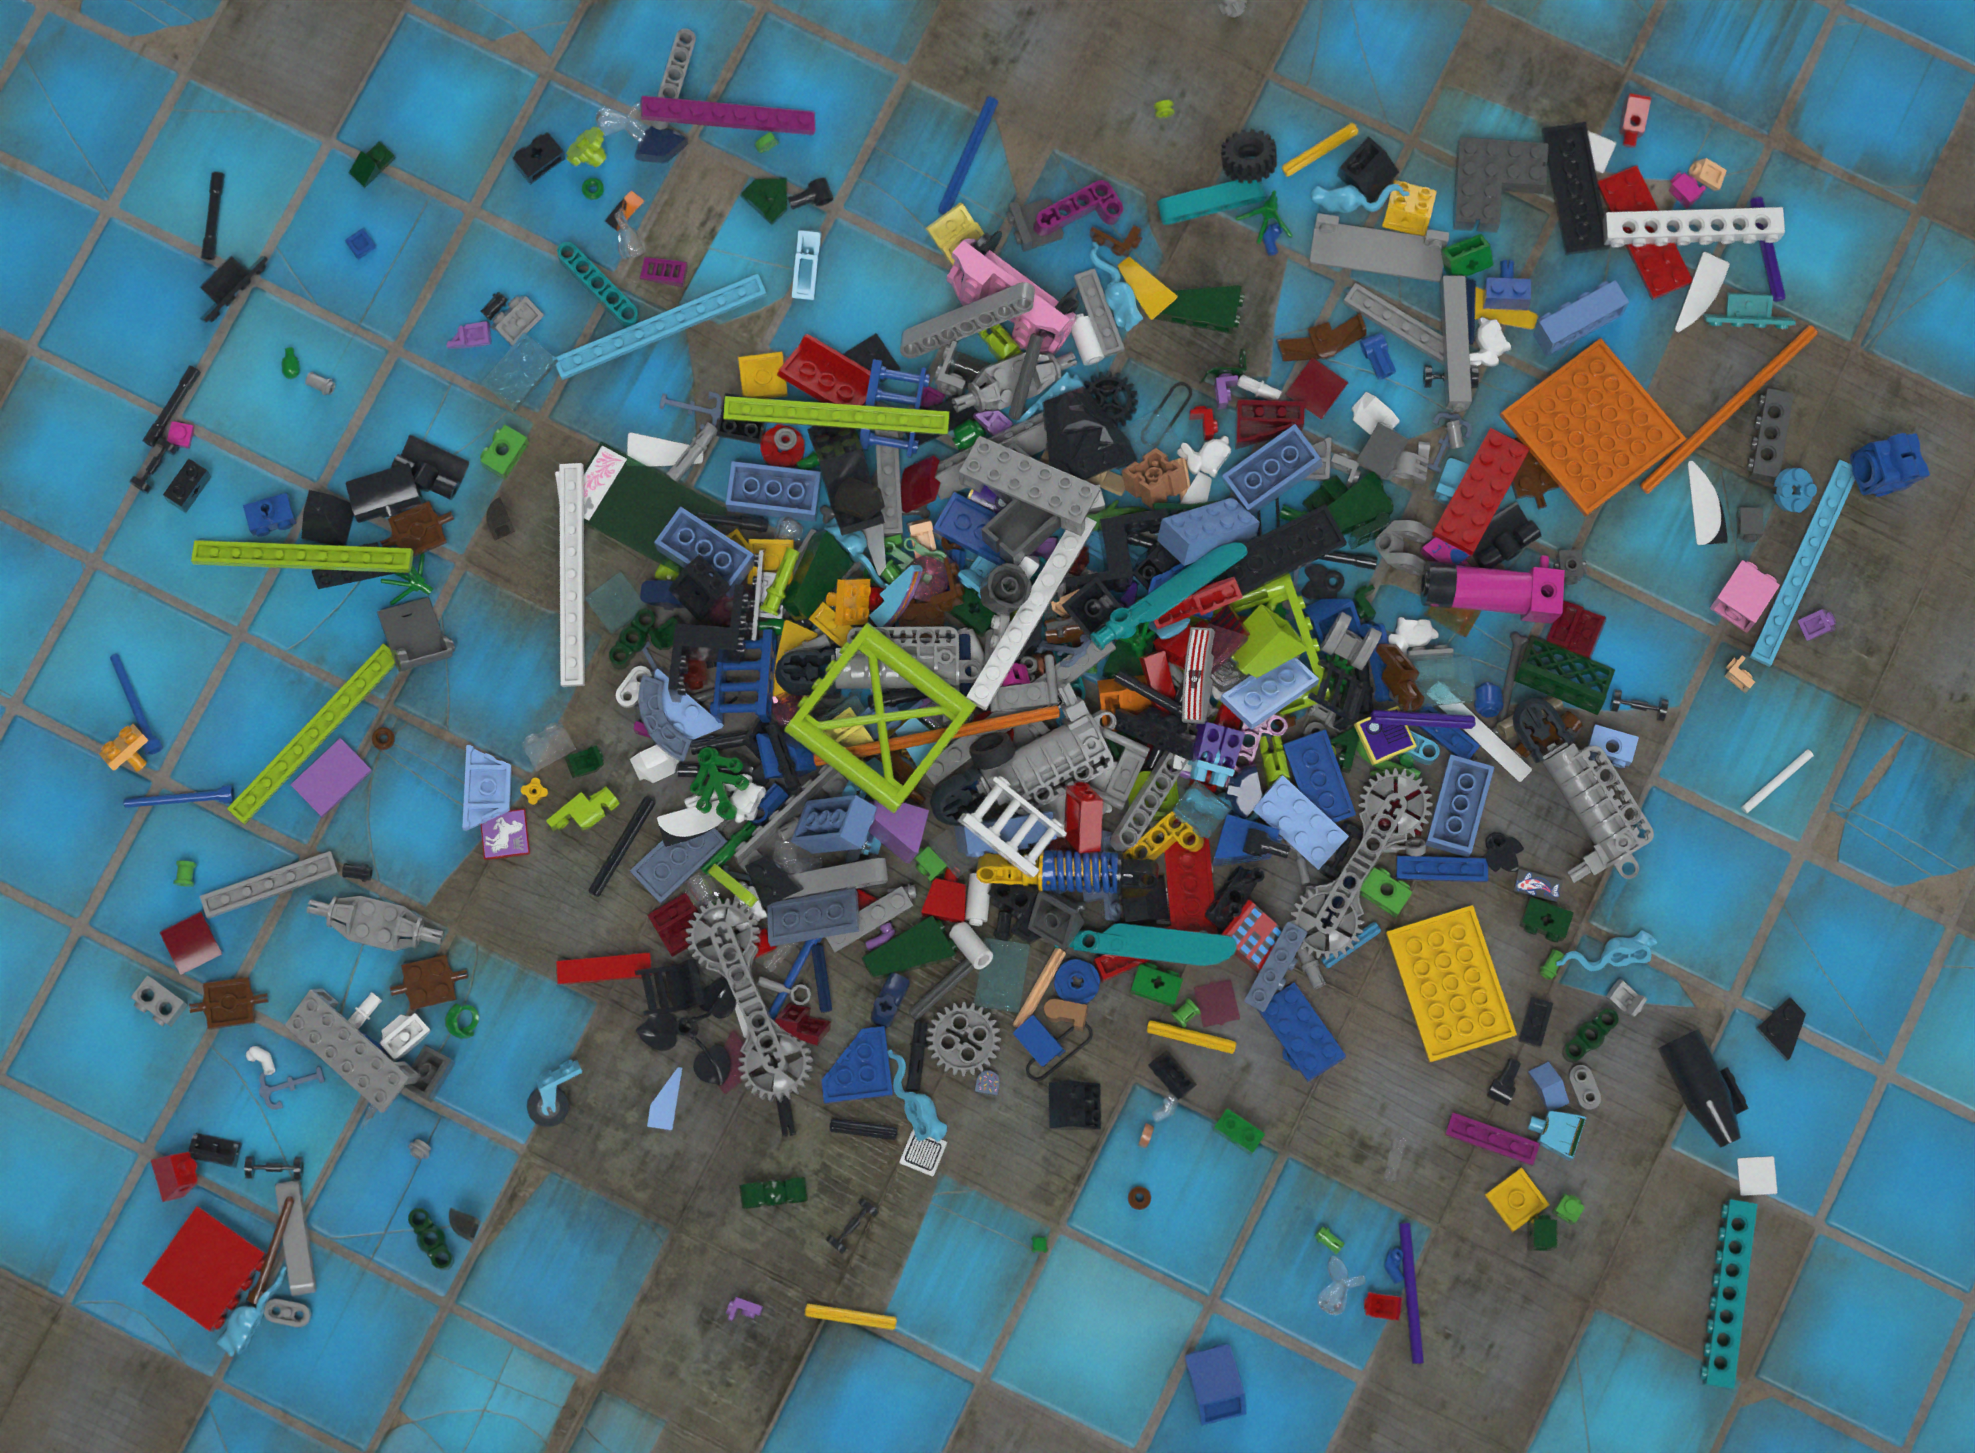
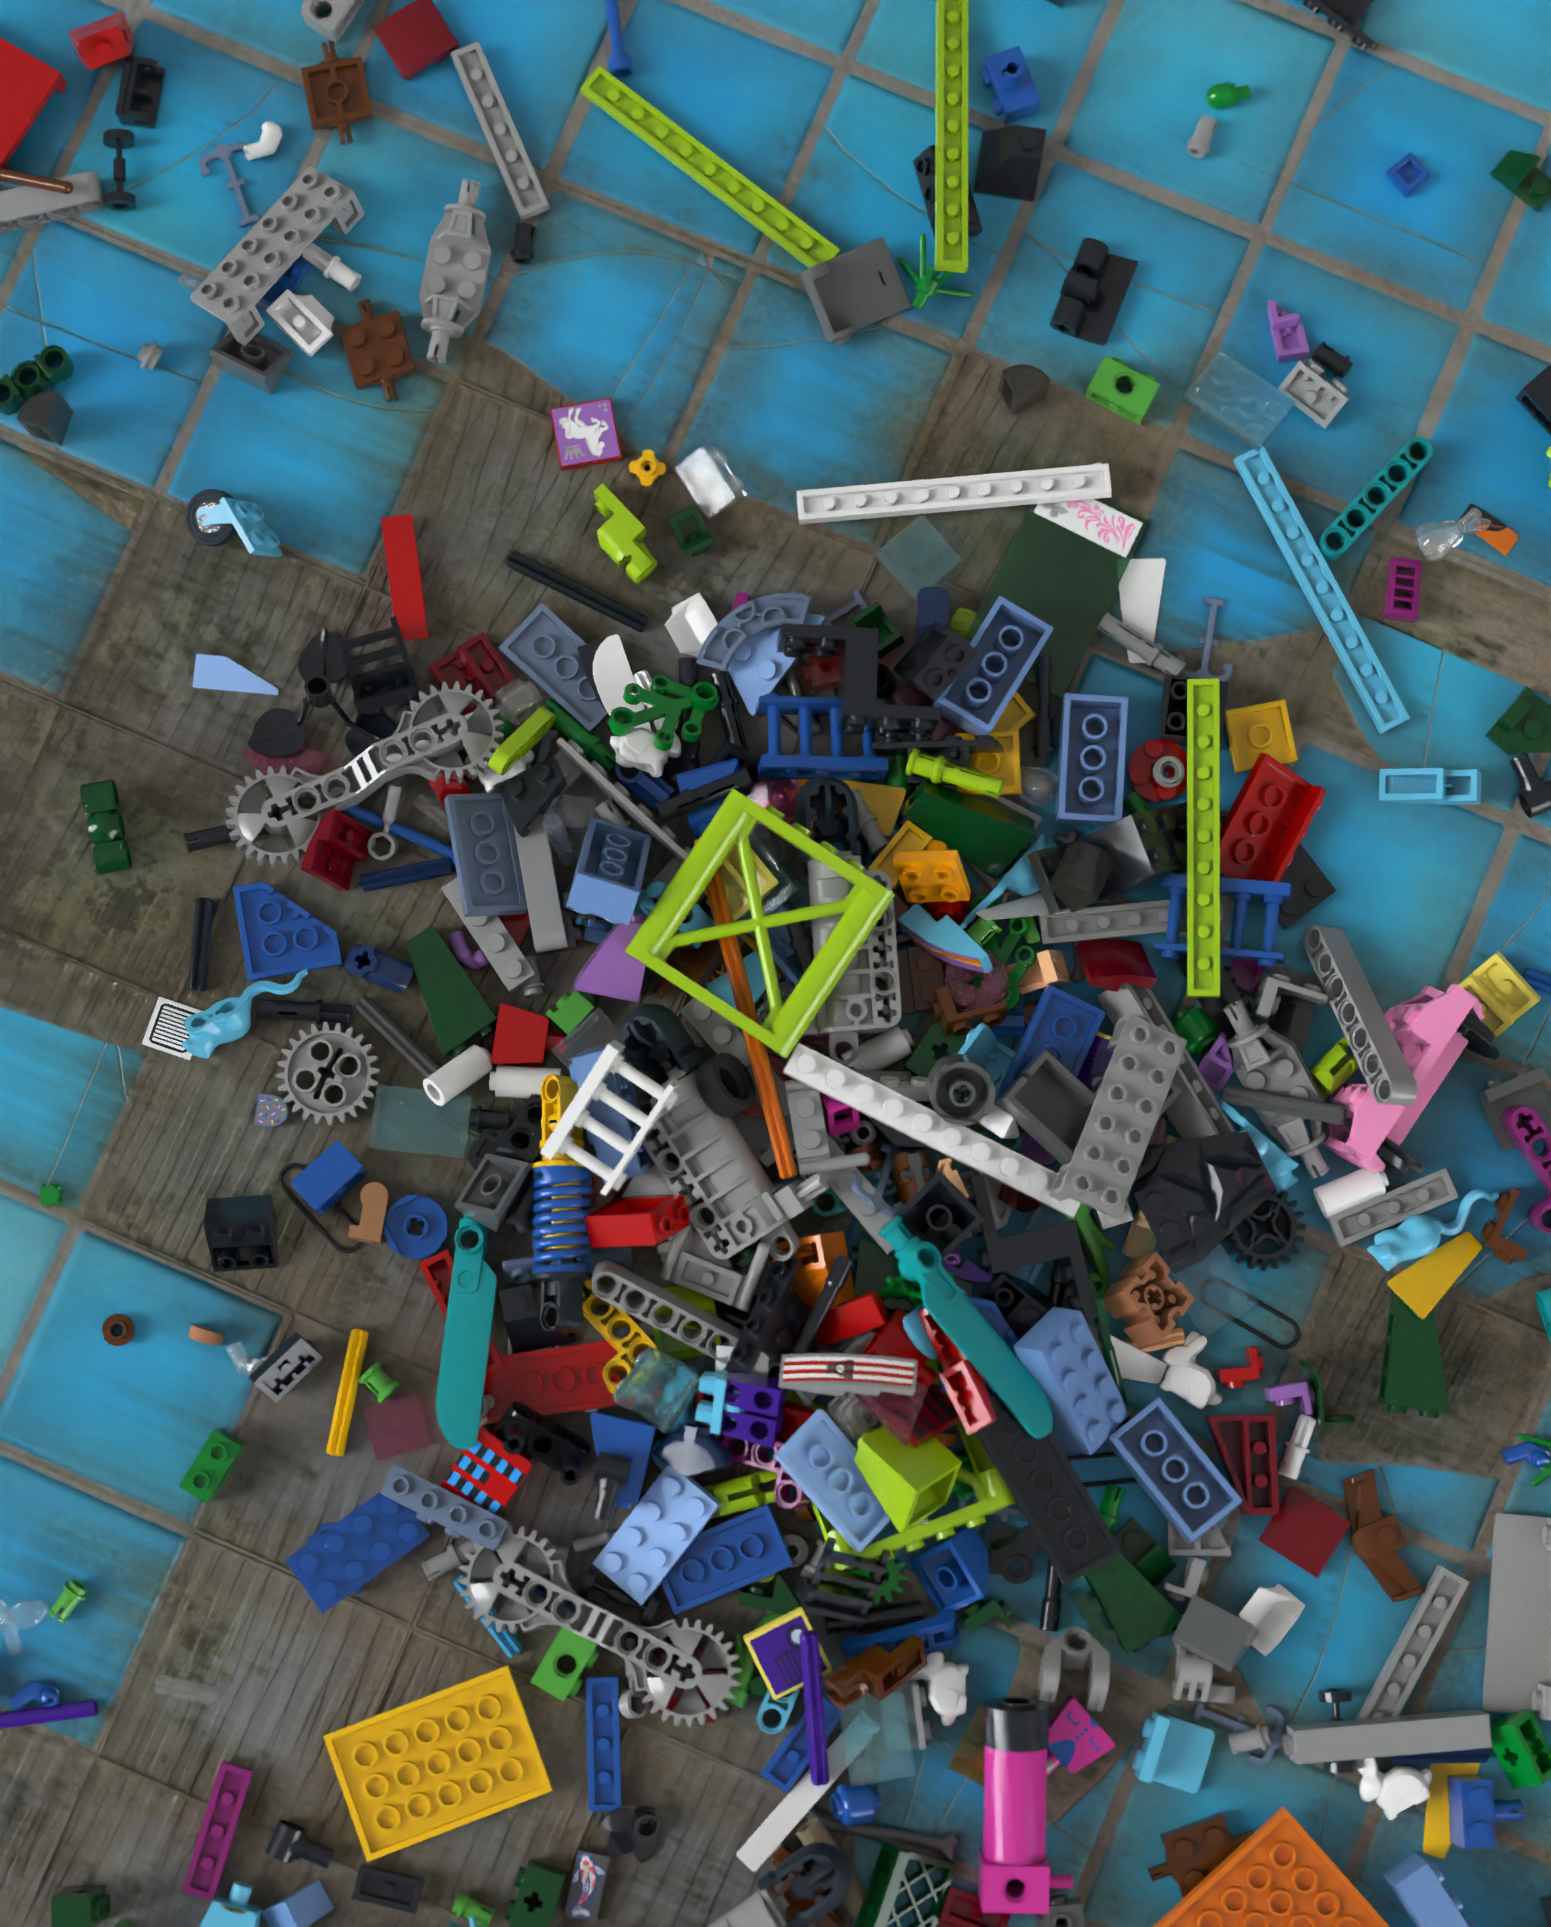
camera: 90 degrees right, 5 degrees up
(185, 873) = (509, 20): bright green bush -> none
(331, 777) = (651, 199): medium lavender tile -> none
(383, 493) = (1049, 230): black panel -> none
(383, 732) = (709, 254): reddish brown plate -> none
(417, 529) = (1003, 282): reddish brown plate -> none
(451, 1021) = (311, 401): green piece -> none
(485, 788) = (646, 401): light blue wing -> none
(592, 182) = (1522, 476): green plate -> none
(628, 649) = (857, 571): dark green piece -> none
(631, 686) = (802, 585): white plate -> none
(852, 1225) = (42, 916): black wheel -> none
(965, 654) = (866, 1041): dark blue axle -> none
(1040, 987) = (404, 1174): light nougat axle -> none
(1144, 988) = (403, 1351): green brick -> none
(1348, 644) = (920, 1597): light grey piece -> none
(1376, 350) = (1369, 1616): blue piece -> none
(1459, 806) = (694, 1766): medium blue brick -> none
(1481, 491) = (1161, 1783): red plate -> none
(1505, 537) = (1100, 1815): black panel -> none
(1516, 1200) = (133, 1869): yellow plate -> none

